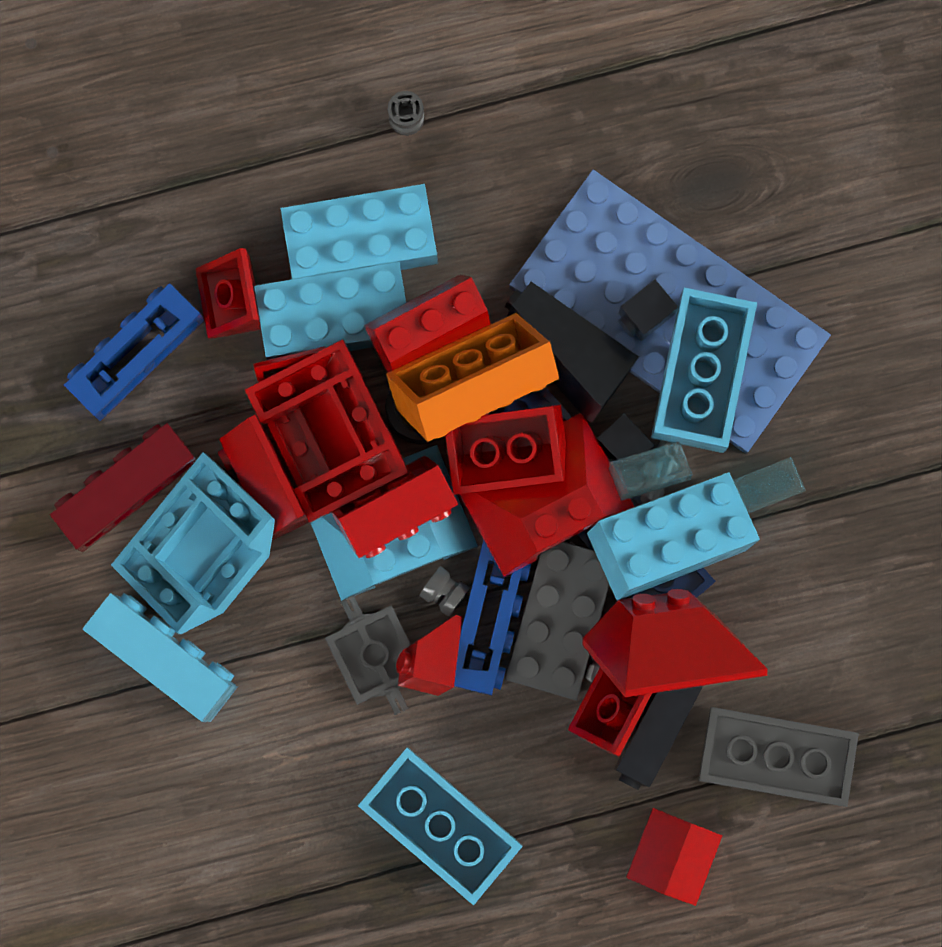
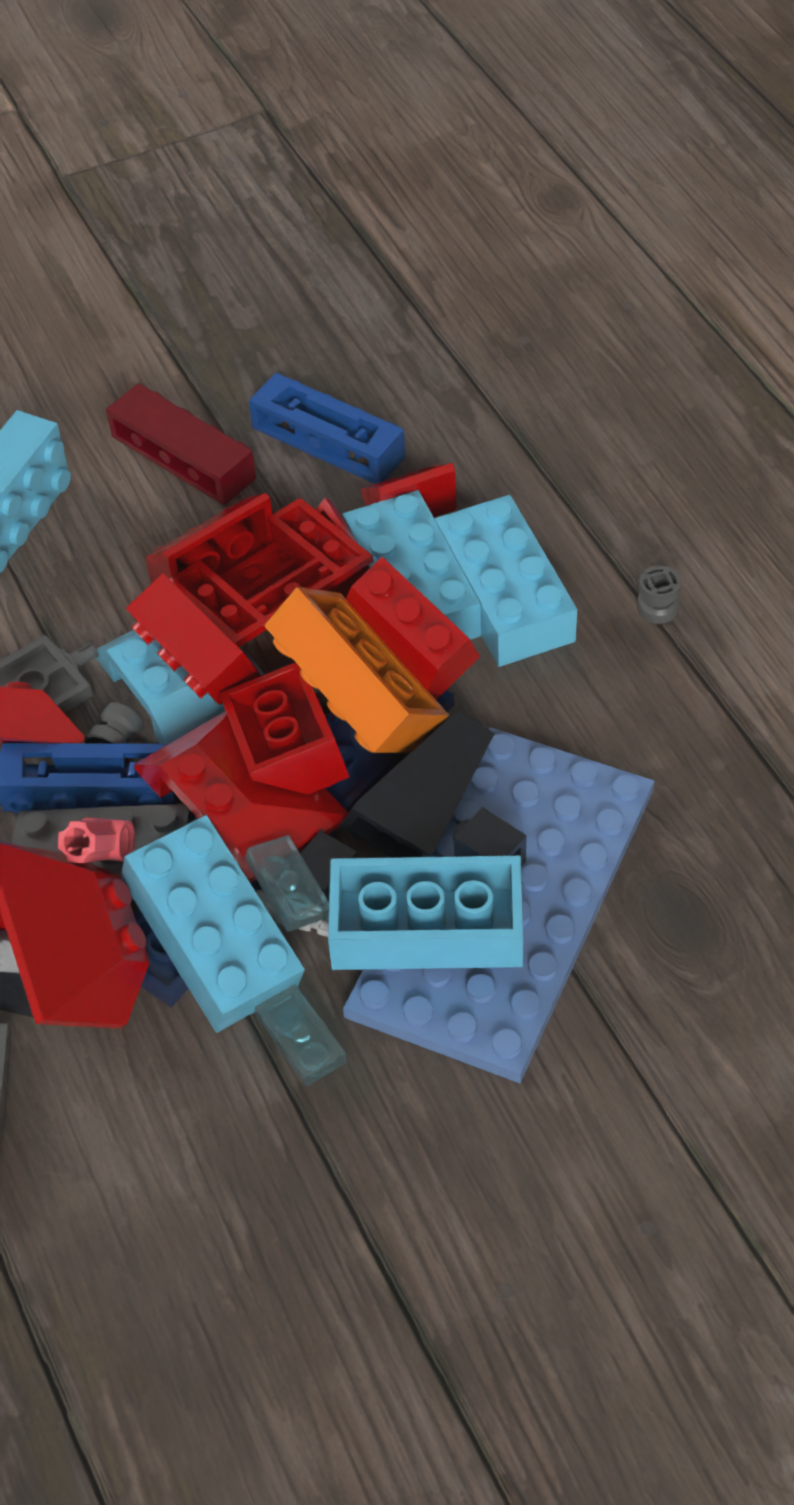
camera: 80 degrees right, 30 degrees down
(198, 547) = (121, 512): medium azure slope -> none
(590, 613) = (97, 840): none -> coral piece

